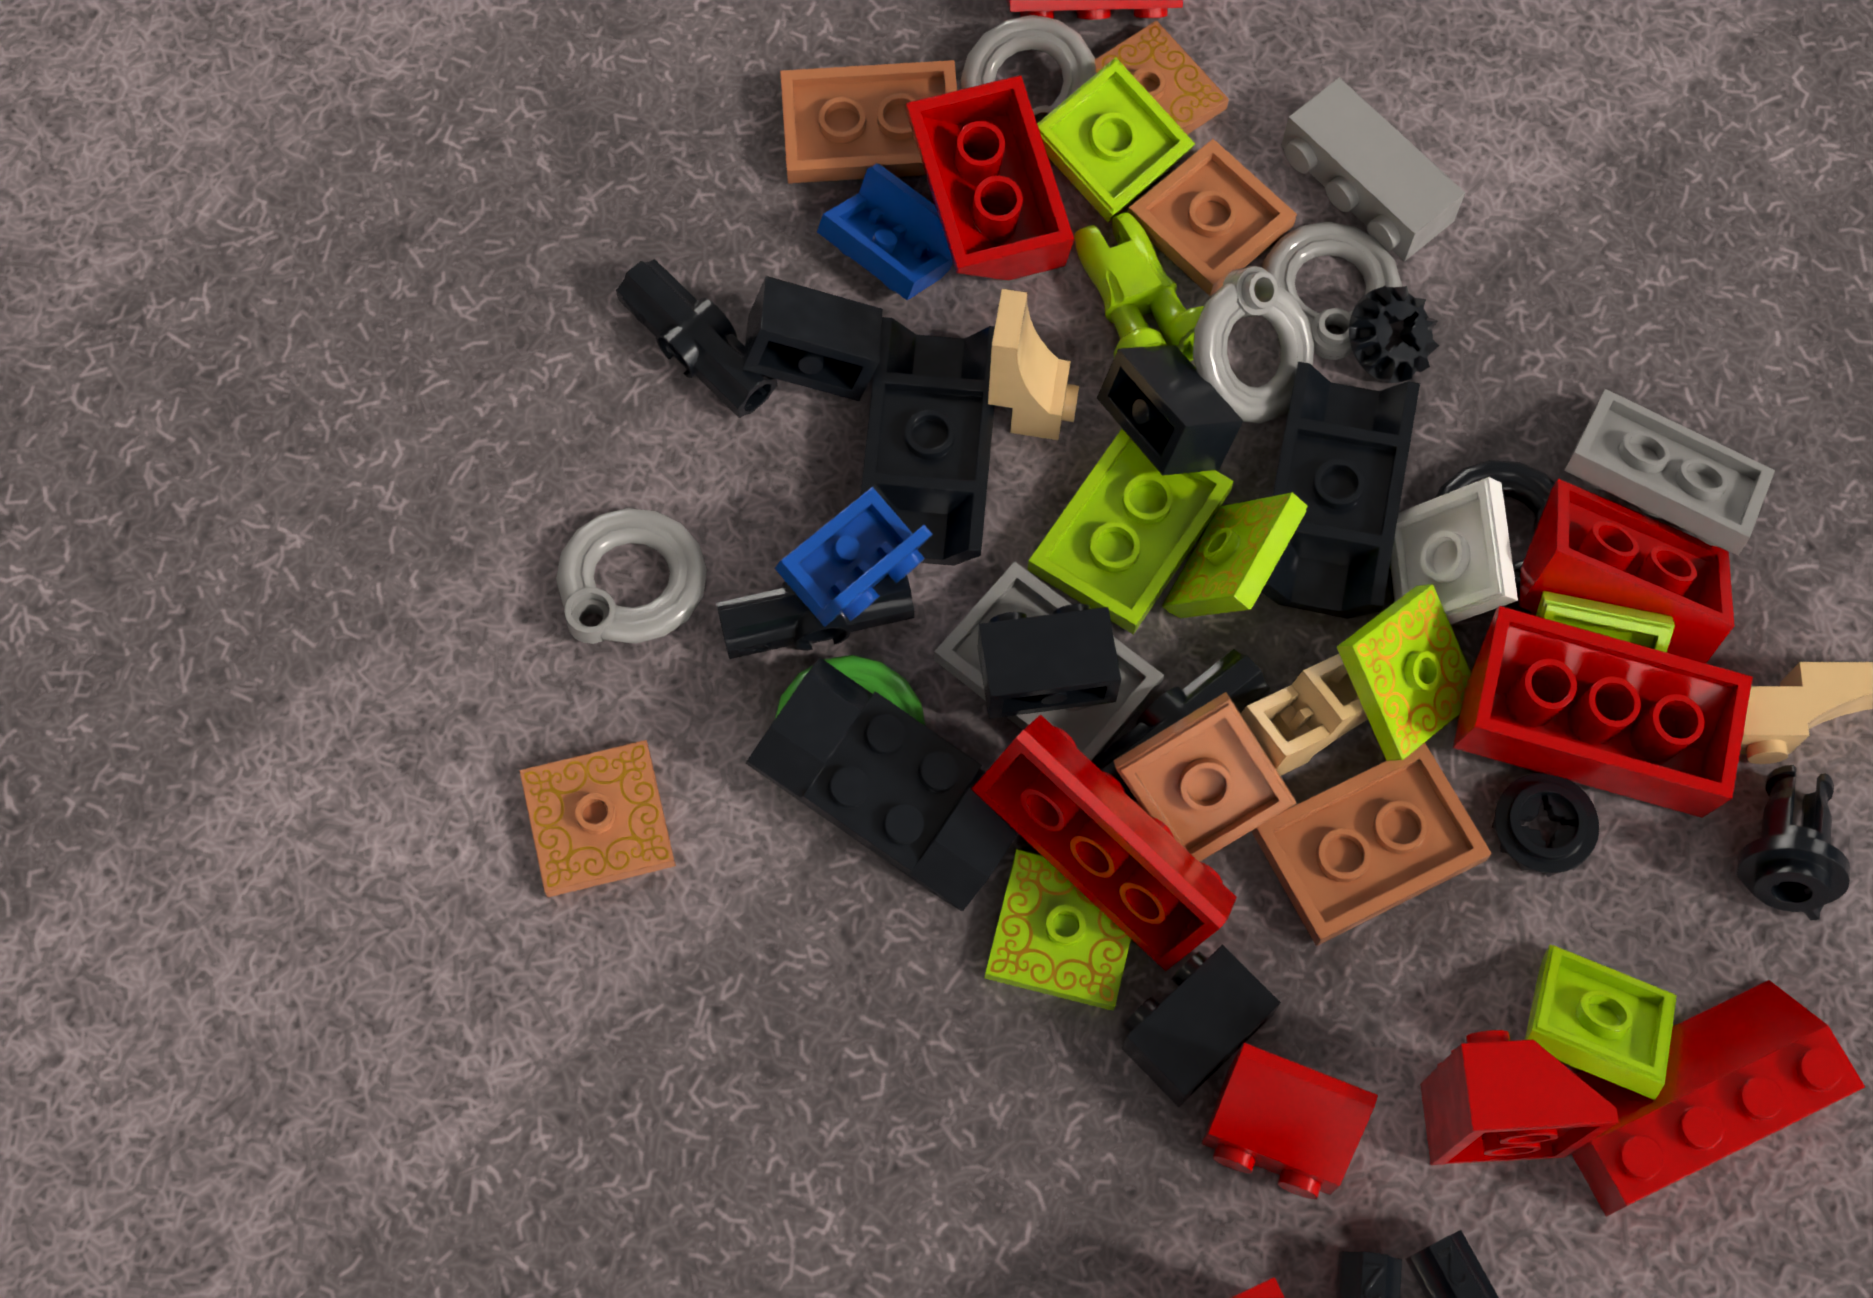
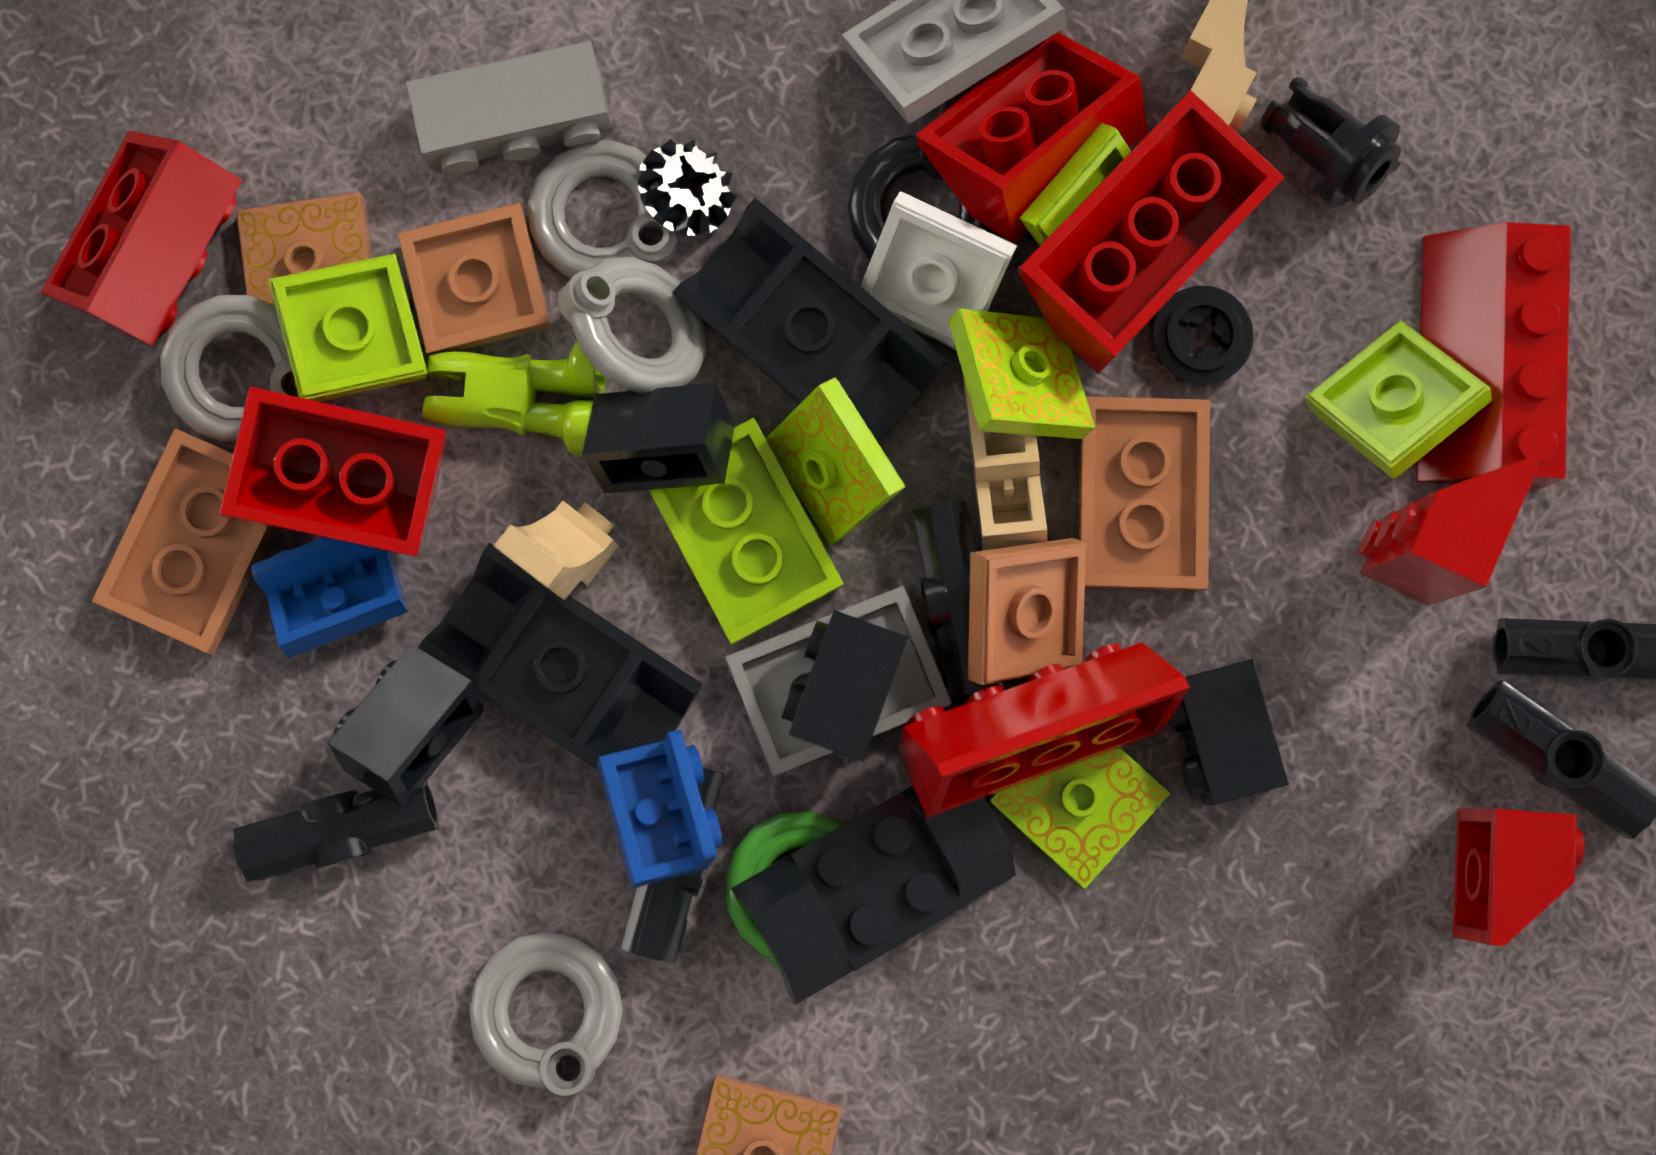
camera: 60 degrees left, 15 degrees up
(1287, 1122) = (1351, 710): red slope -> none

